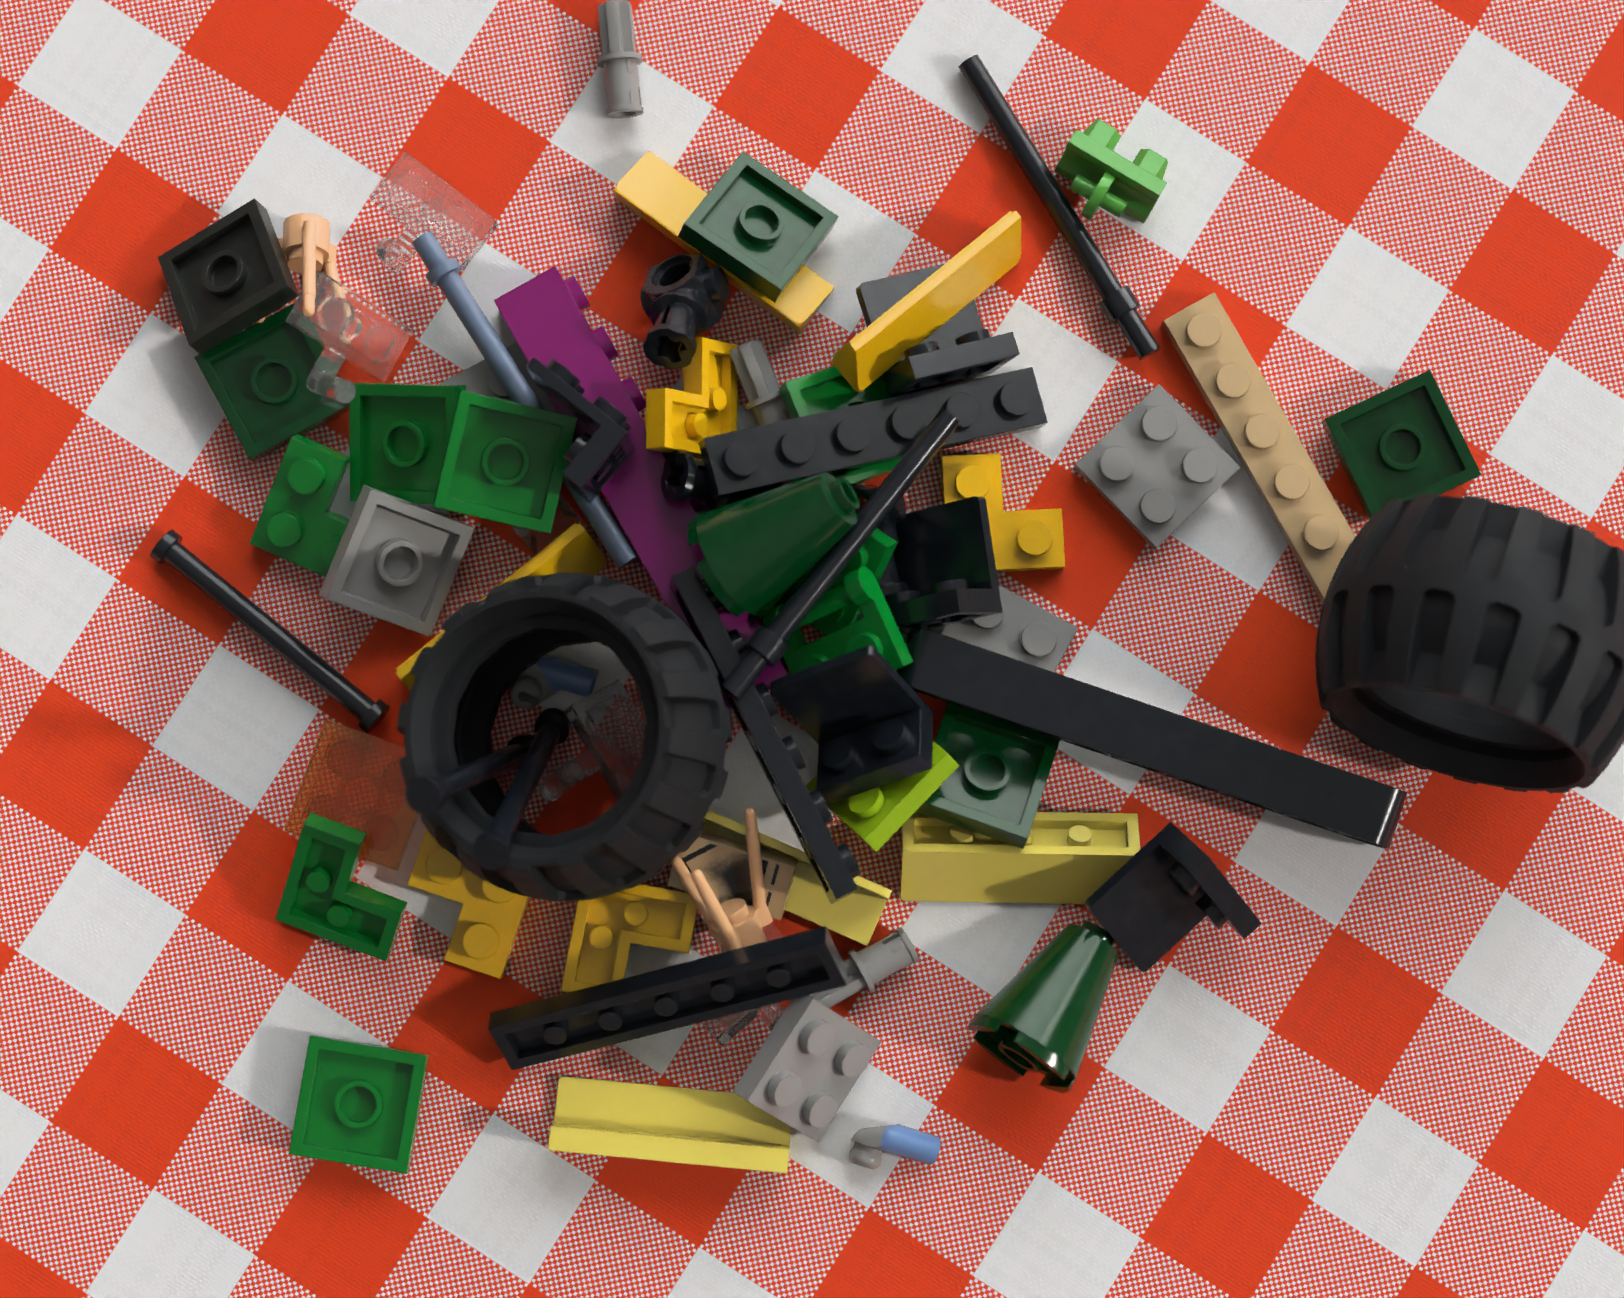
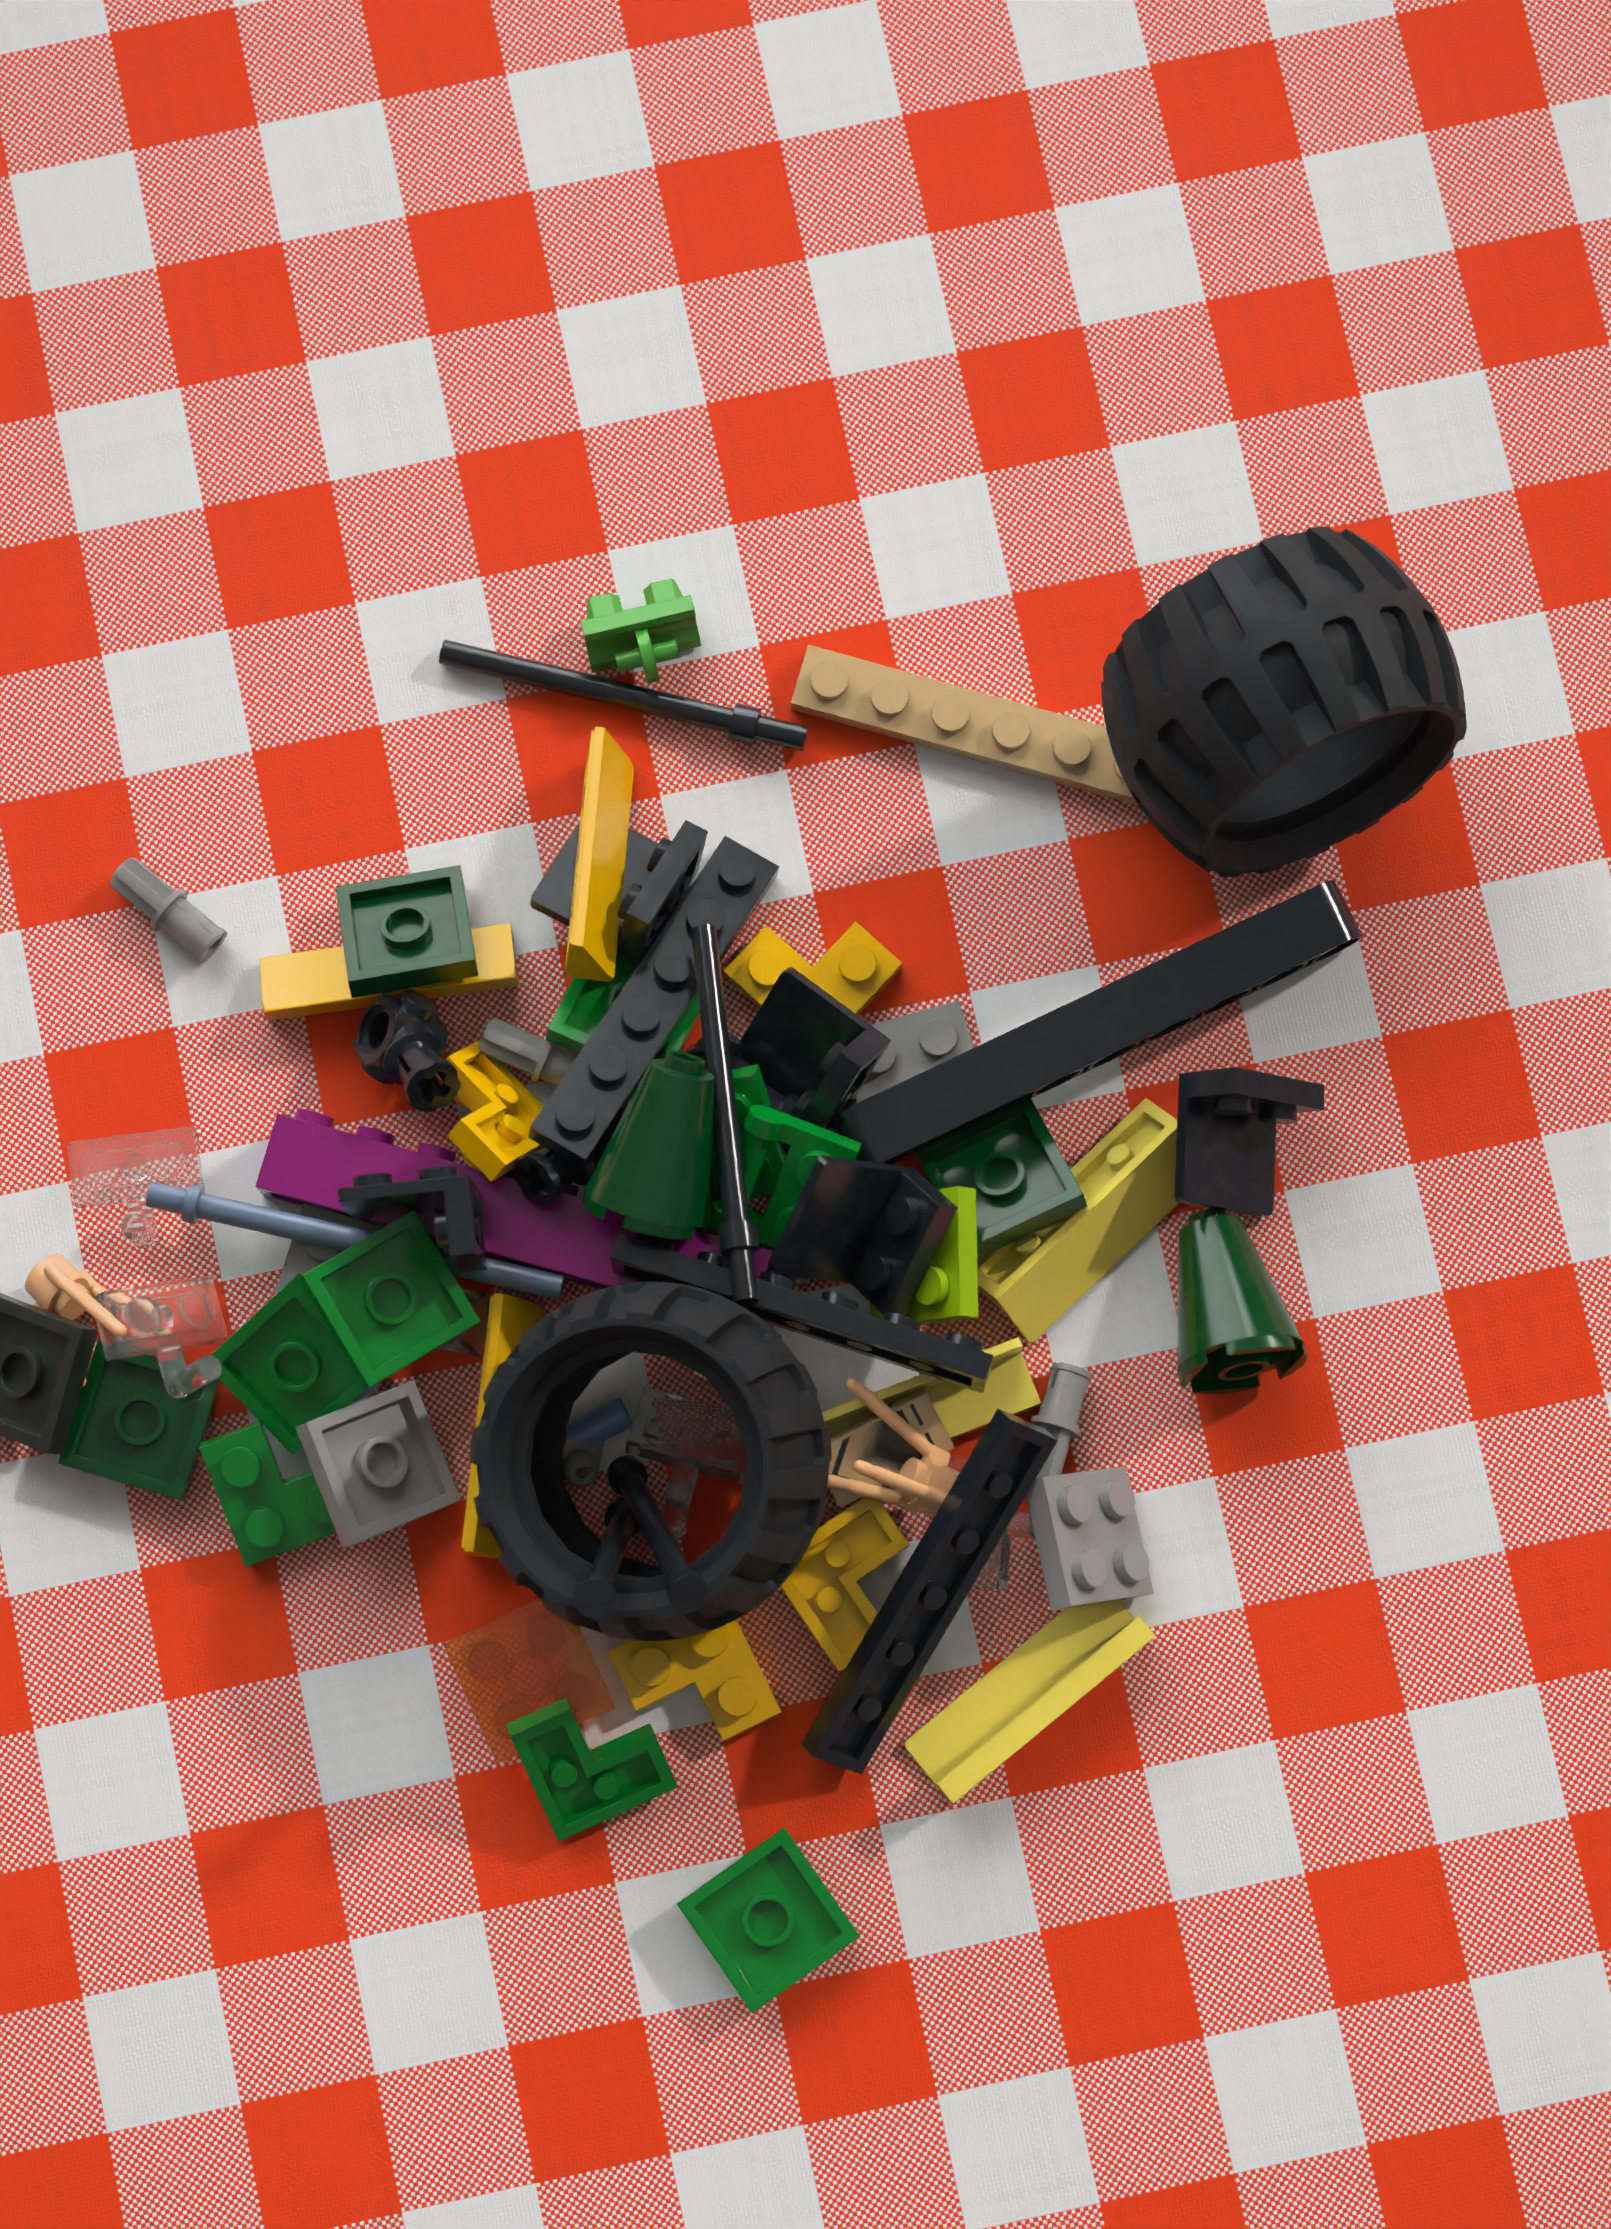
camera: 40 degrees left, 5 degrees down
(268, 630) = (328, 1620): black bar -> none
(895, 1140) = (1209, 1532): arm -> none
(1156, 467) = (896, 820): light grey plate -> none
(1401, 444) = (1065, 623): dark green plate -> none

